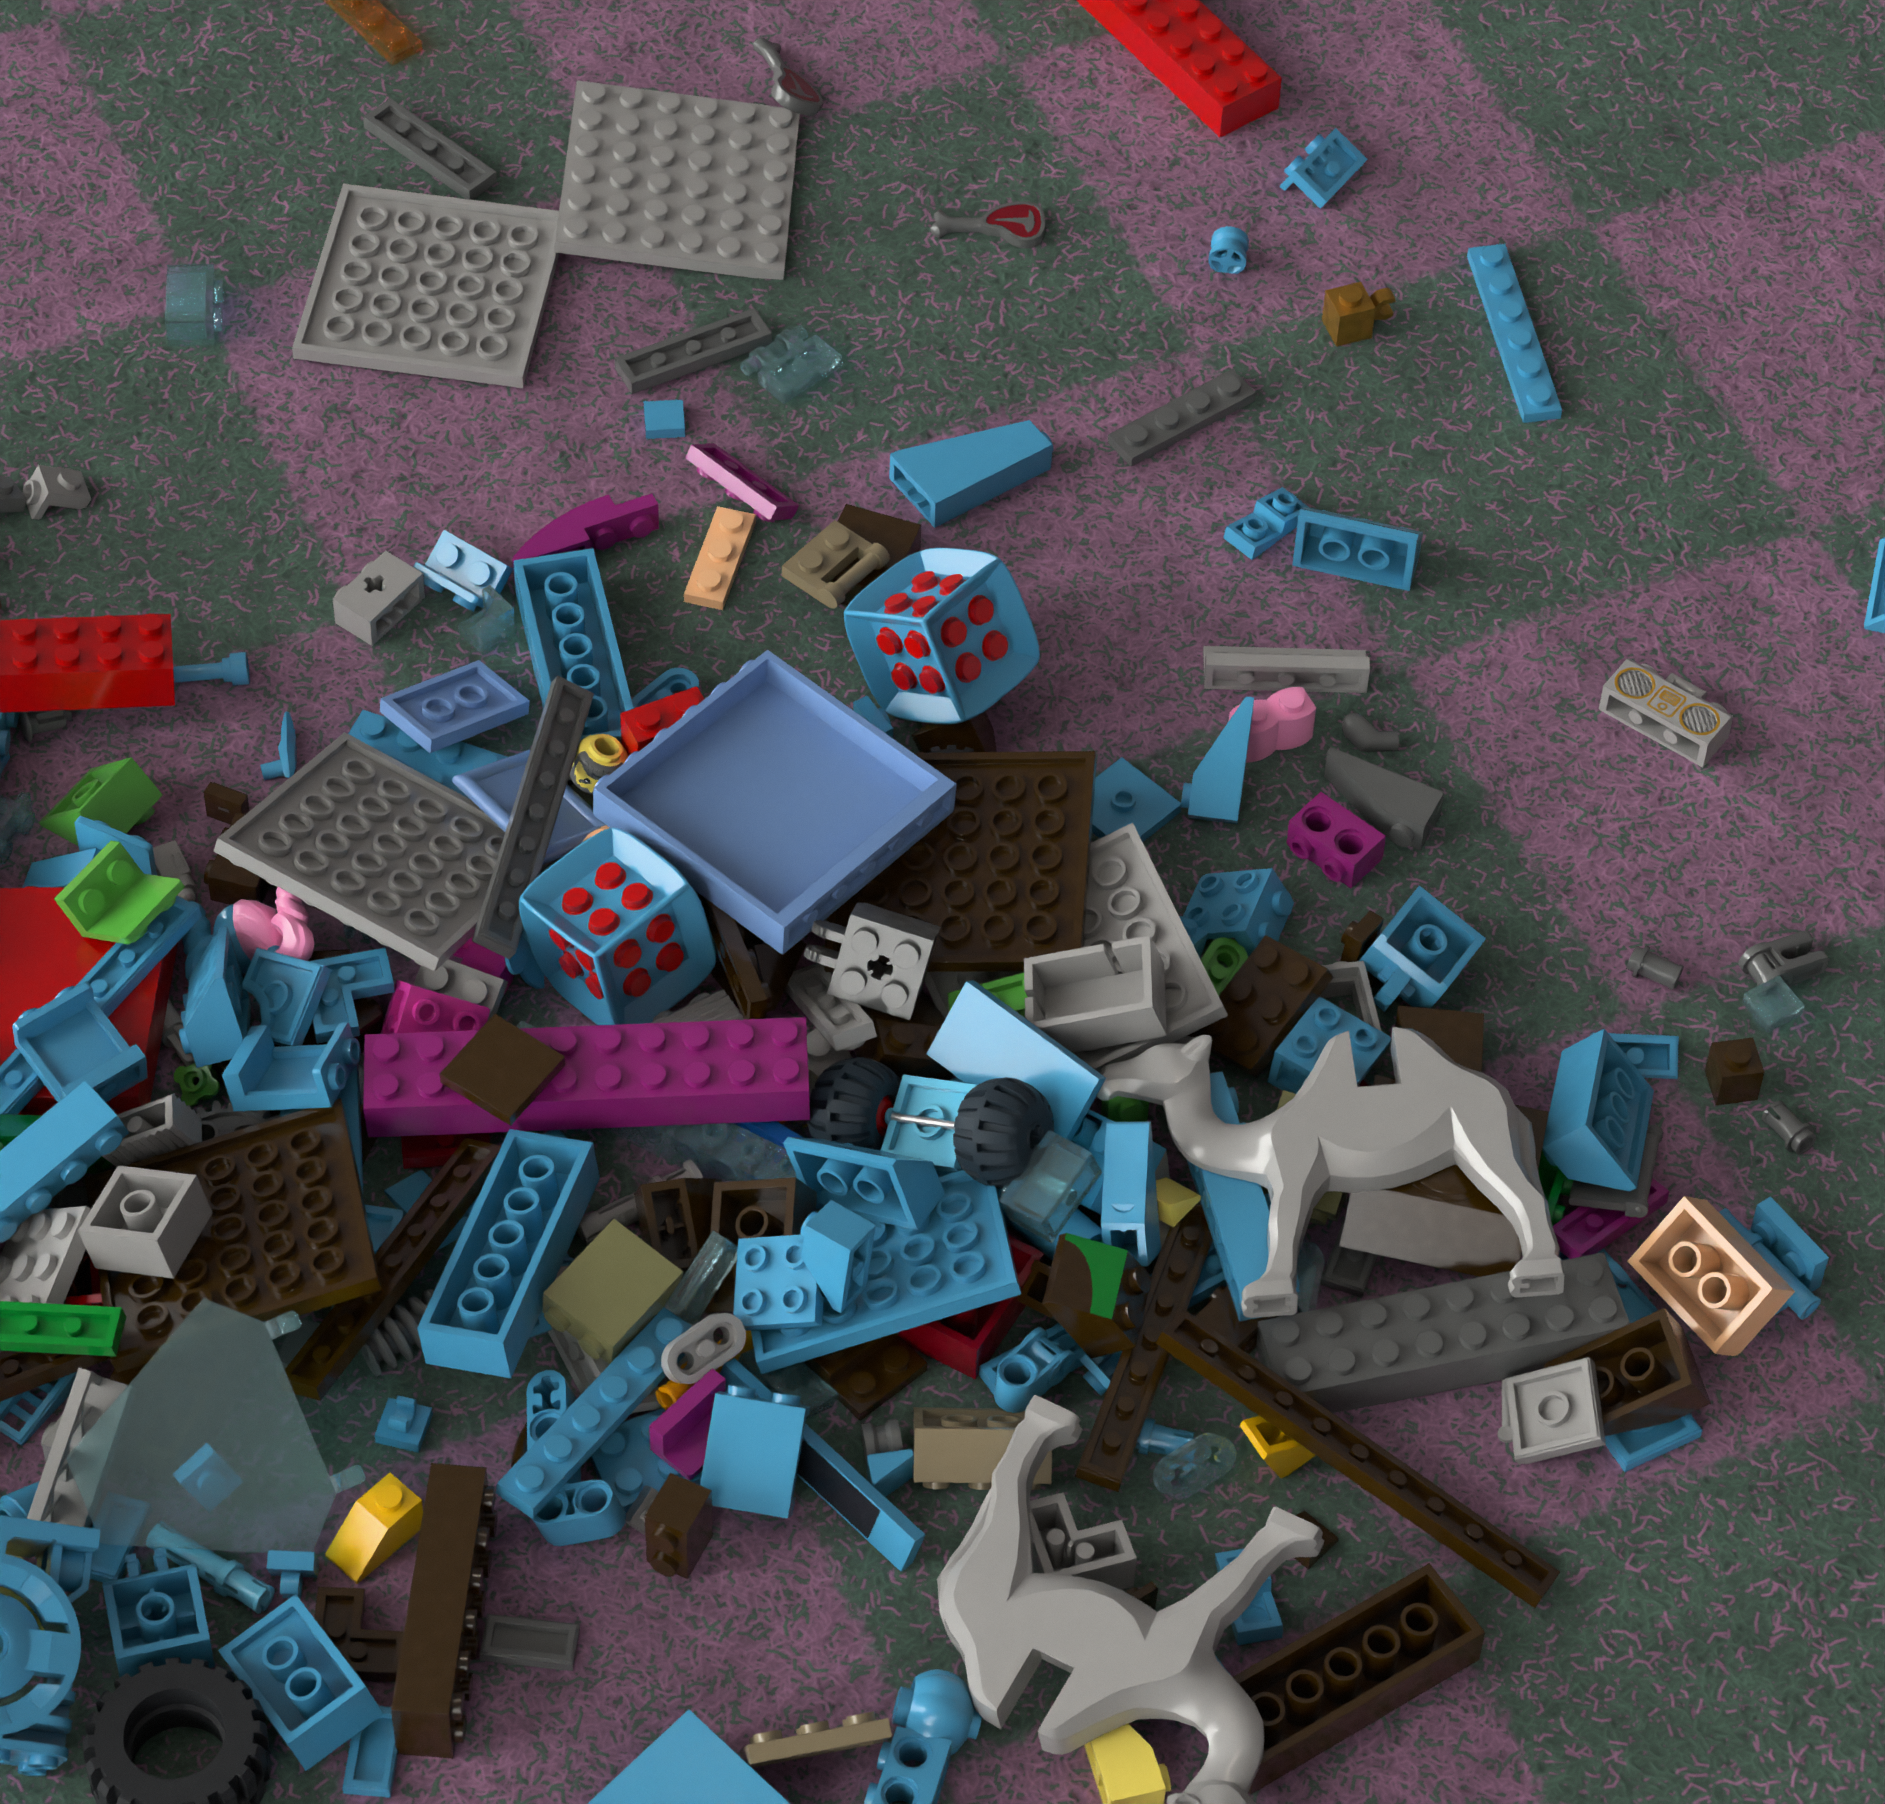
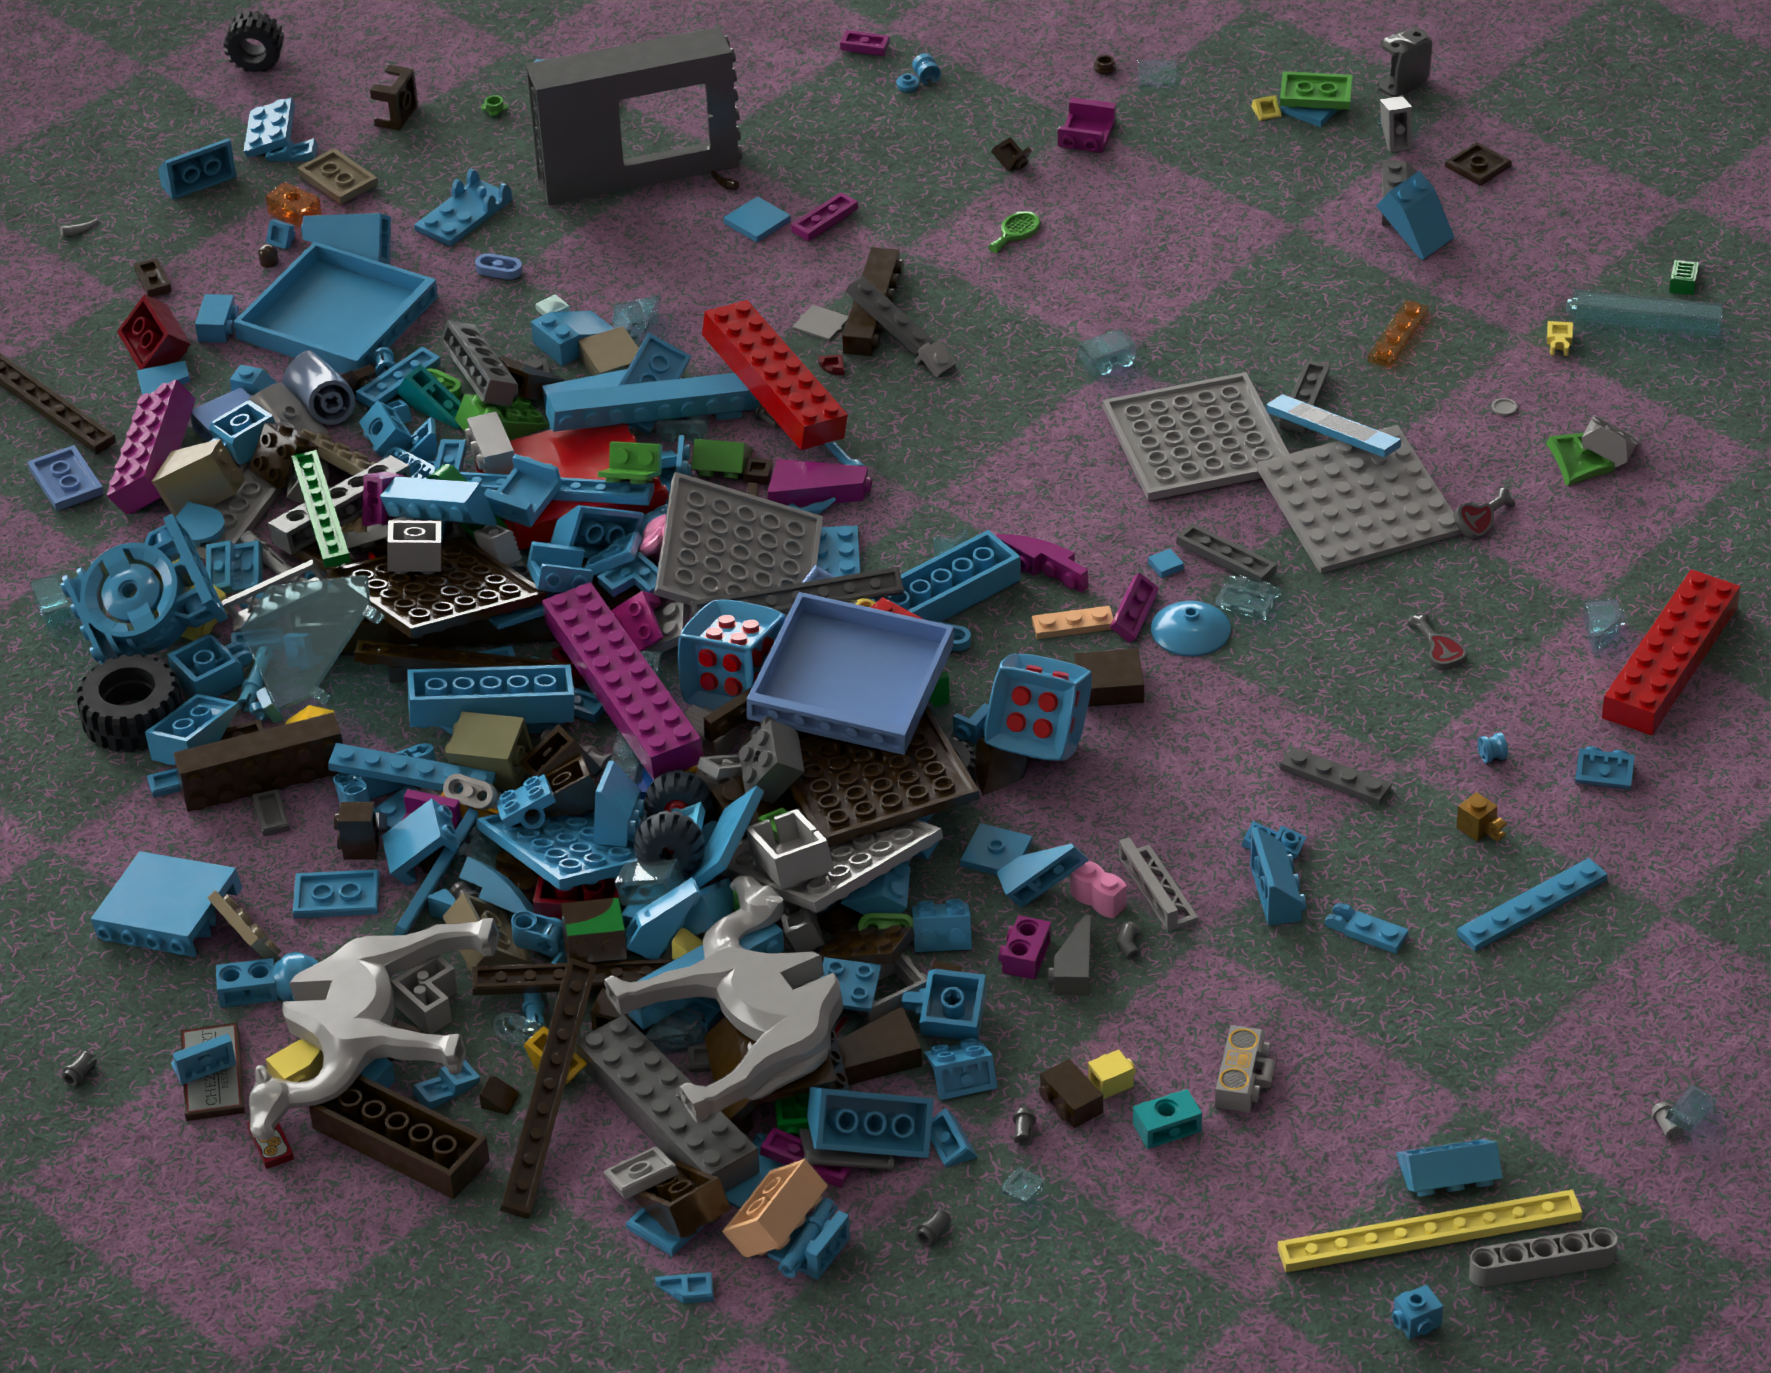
camera: 70 degrees right, 10 degrees down
(165, 774) = (758, 471): none -> dark brown plate
(241, 722) = (816, 482): none -> magenta slope
(378, 597) = (940, 500): light grey brick -> none
(403, 1424) = (383, 716): dark azure tile -> none
(454, 706) = (873, 550): medium blue plate -> none
(463, 570) = (983, 519): bracket -> none
(502, 1069) = (588, 634): dark brown tile -> none
(543, 138) = (1333, 425): none -> dark azure tile
(703, 1278) = (515, 774): clear light blue tile -> none
(764, 1610) = (336, 893): none -> dark azure tile
(808, 446) = (1190, 628): none -> dark azure dish
(826, 557) = (1085, 653): dark tan plate -> none
(838, 1252) = (537, 803): dark azure slope -> none
(896, 1394) = (496, 887): none -> dark azure slope
(969, 469) = (1215, 696): dark azure slope -> none
(1068, 61) = (1602, 622): none -> clear light blue slope
(1474, 497) = (1366, 928): none -> dark azure hinge
(1517, 984) = (962, 1068): none -> dark azure bracket
(1611, 841) = (1111, 1073): none -> light yellow brick
(1626, 894) = (1071, 1093): none -> dark brown brick
(1717, 816) = (1167, 1118): none -> teal brick
(1734, 1071) = (956, 1183): dark brown brick -> none
(1772, 1435) = (688, 1287): none -> dark azure tile
(1785, 958) = (1067, 1186): dark grey piece -> none

